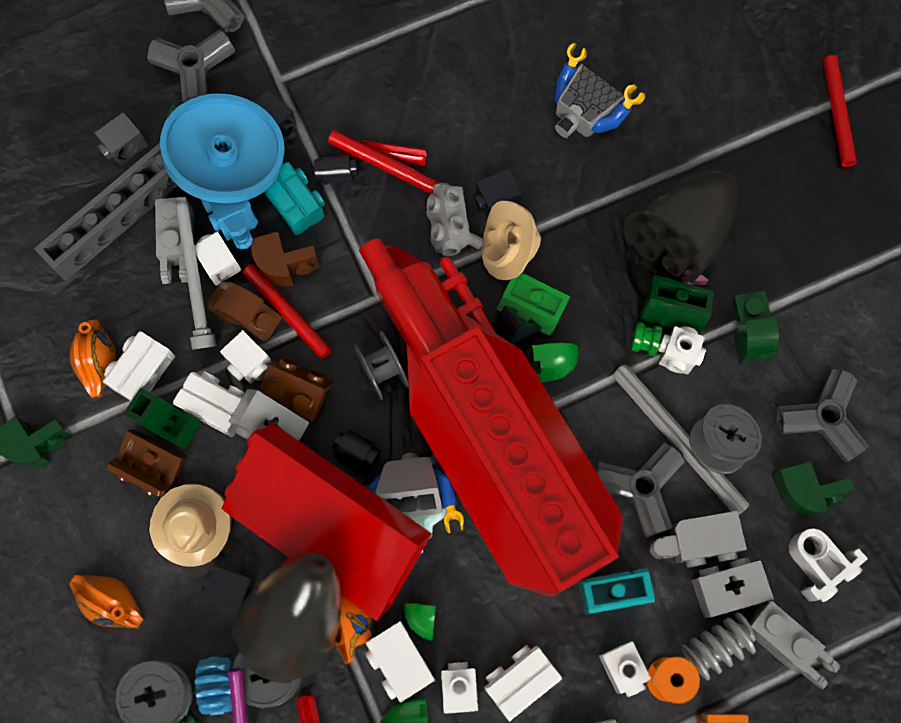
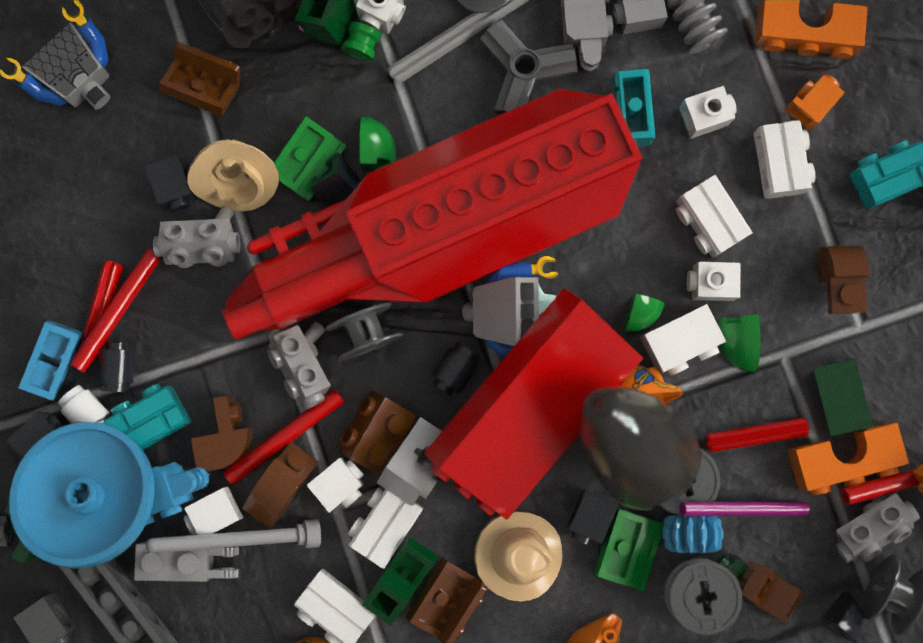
camera: 90 degrees left, 10 degrees up
(200, 627) = (629, 549): none -> green plate
(299, 147) = (82, 406): none -> white brick
(330, 113) = (50, 360): none -> dark azure brick
(356, 311) = (297, 360): none -> light grey brick
(591, 207) = (201, 79): none -> reddish brown bracket
(685, 679) = (725, 63): orange piece -> none

